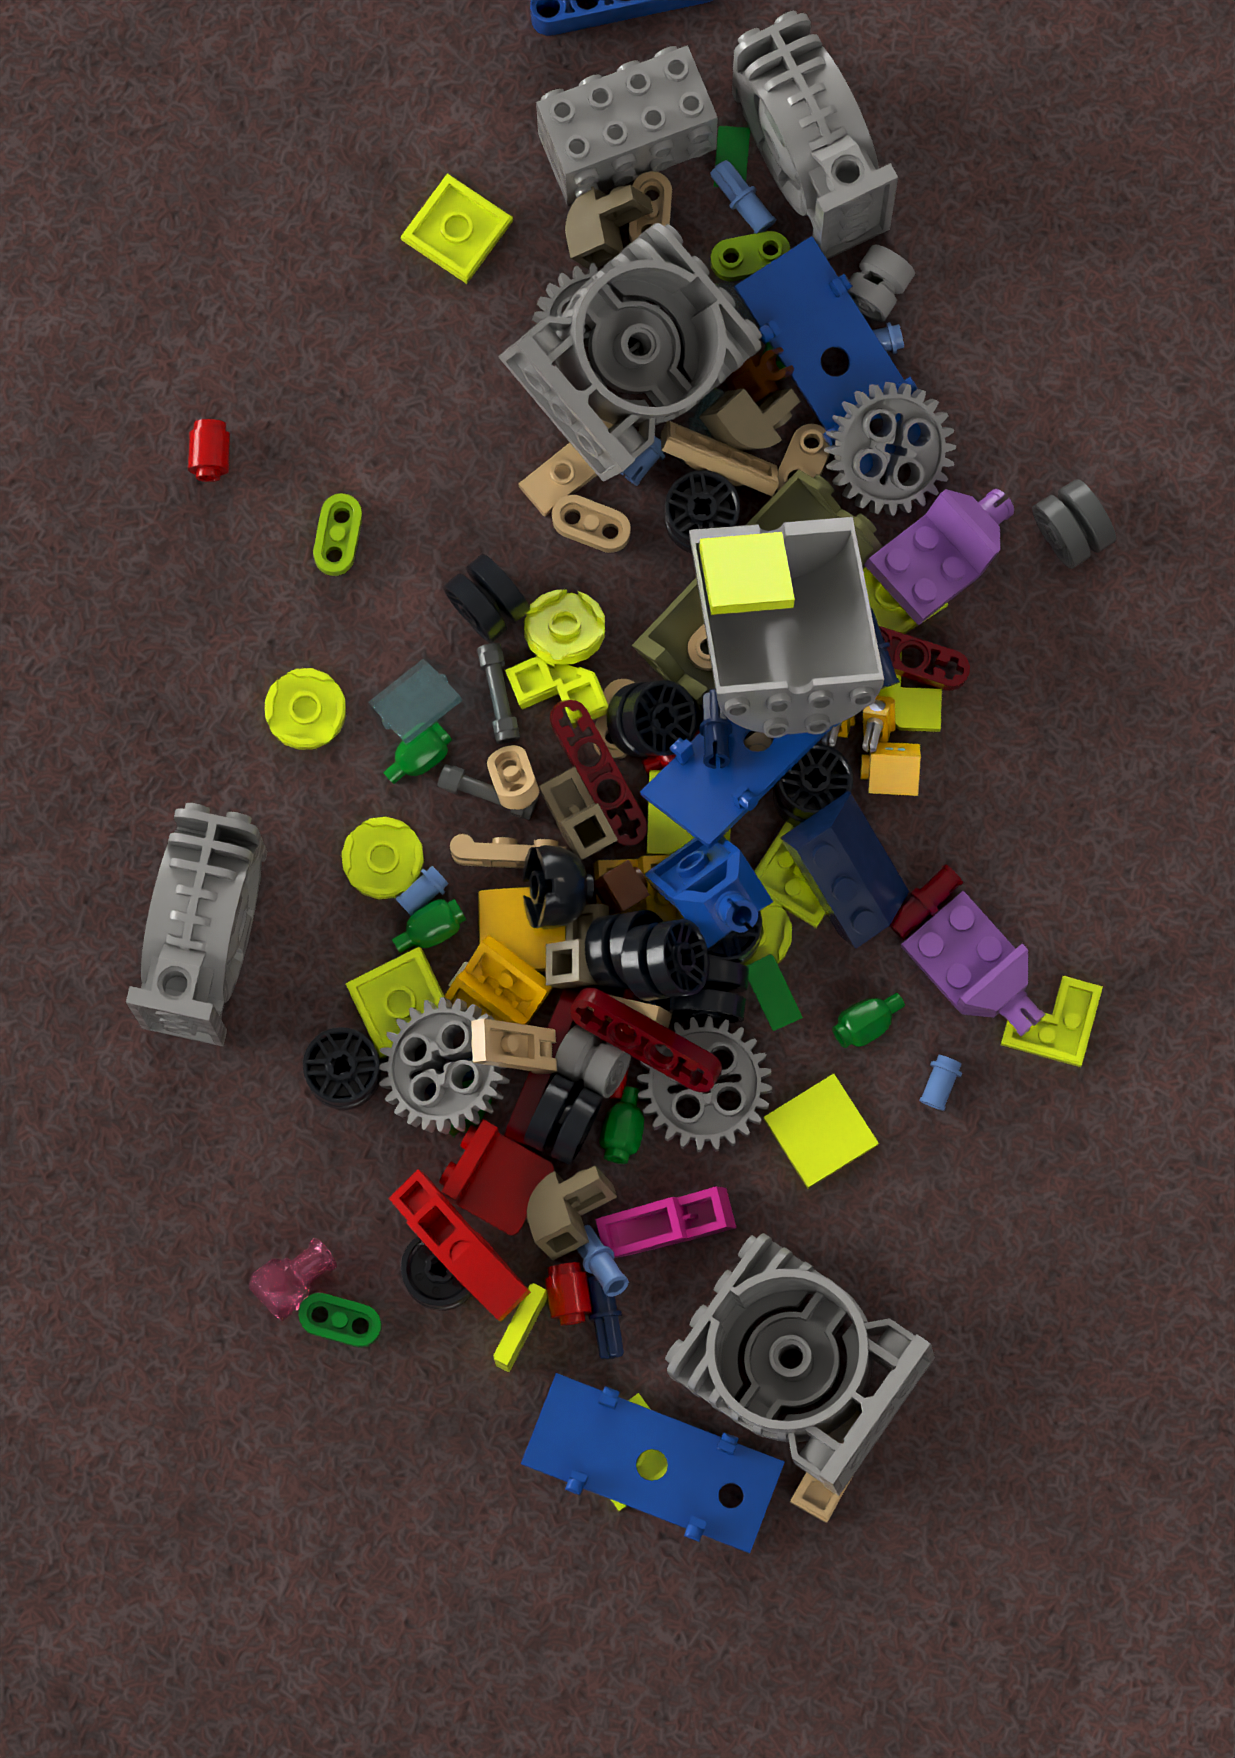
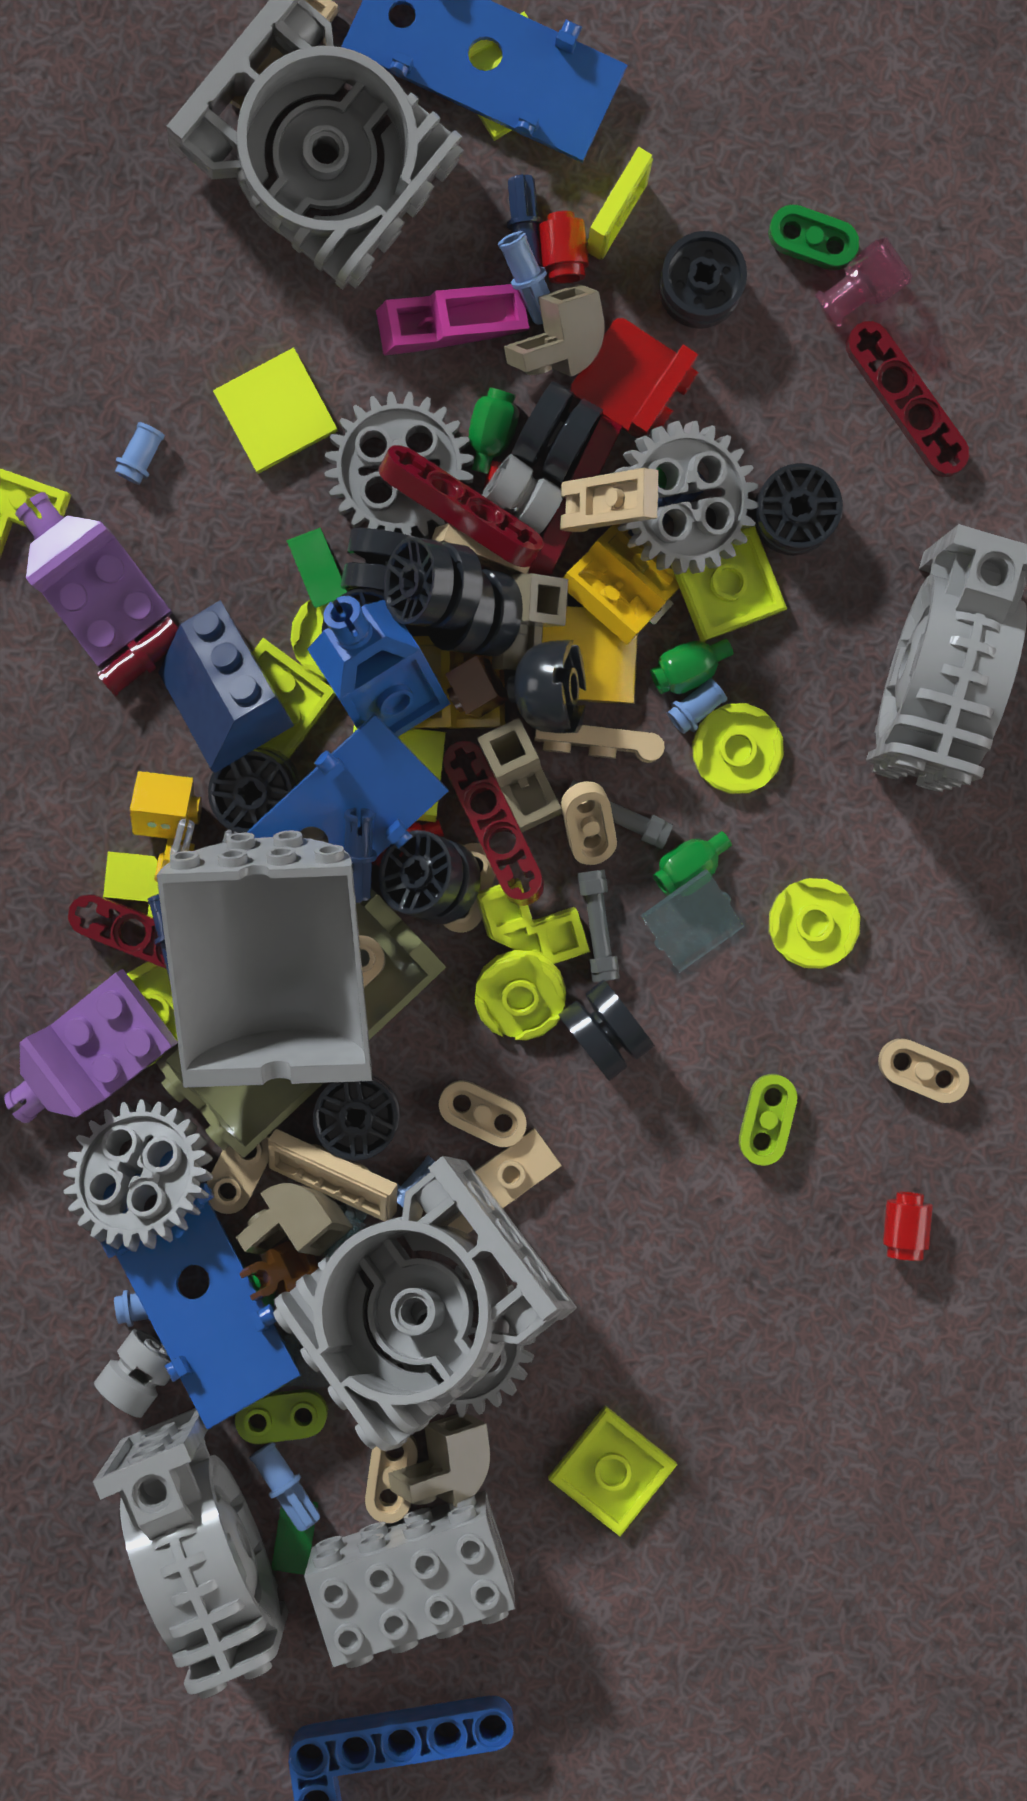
camera: 175 degrees right, 10 degrees up
(202, 585) = (922, 1070): none -> tan plate
(247, 1179) = (913, 395): none -> dark red beam
(458, 1245) = (686, 282): red slope -> none
(746, 573) = (308, 1019): neon yellow tile -> none
(866, 1020) = (216, 528): green plant -> none

